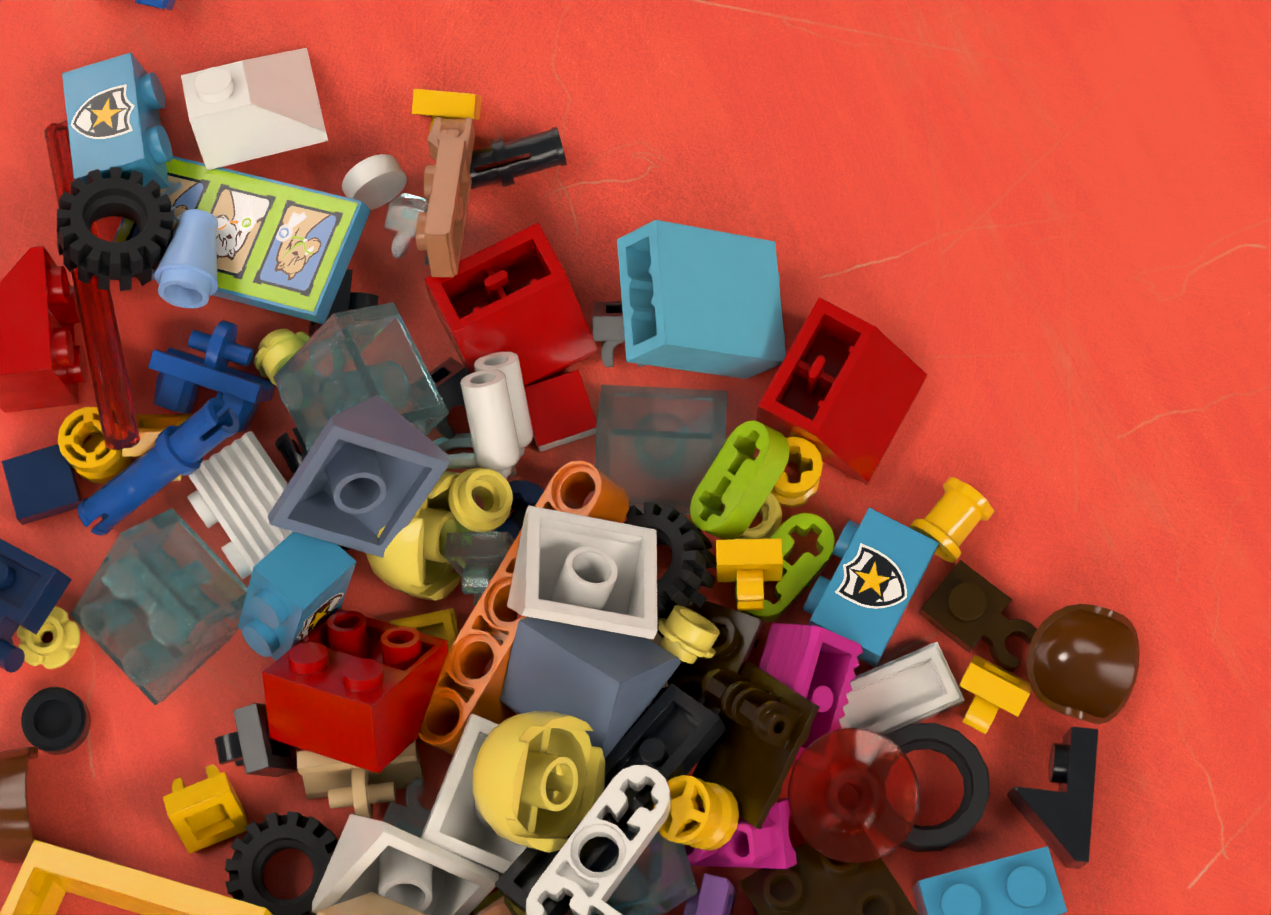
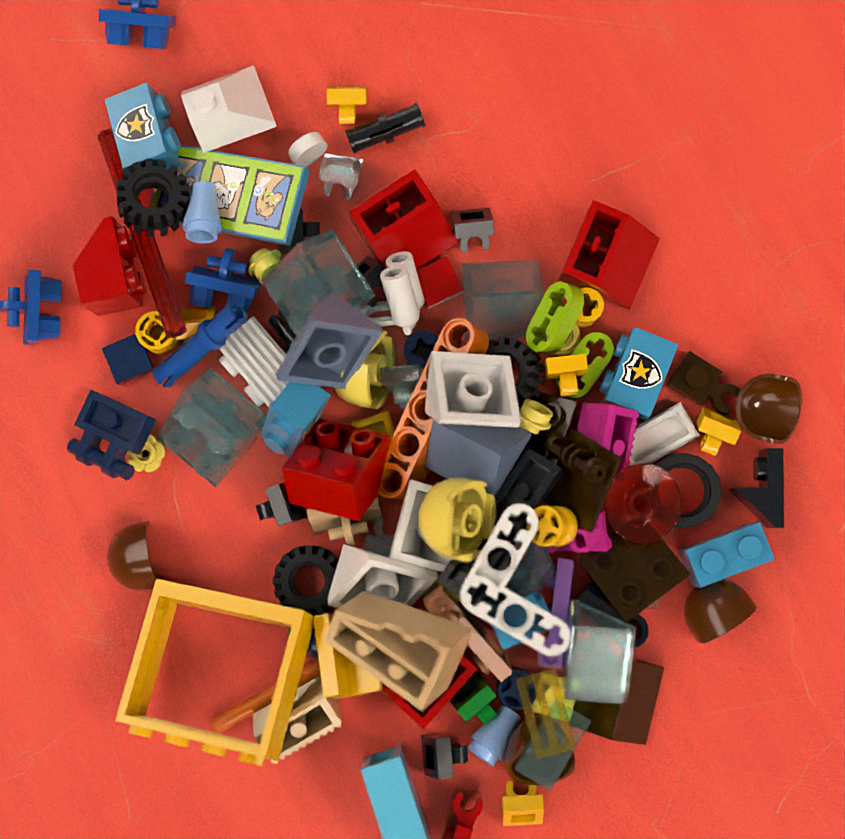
camera: 10 degrees left, 10 degrees up
(55, 720) = (157, 502): black tile -> none
(205, 810) = (255, 549): yellow tile -> none
(448, 194) = (356, 152): nougat hinge -> none
(493, 491) = (408, 342): light yellow plate -> none
(700, 300) = (519, 207): medium azure brick -> none
(953, 518) = (683, 326): yellow bush -> none

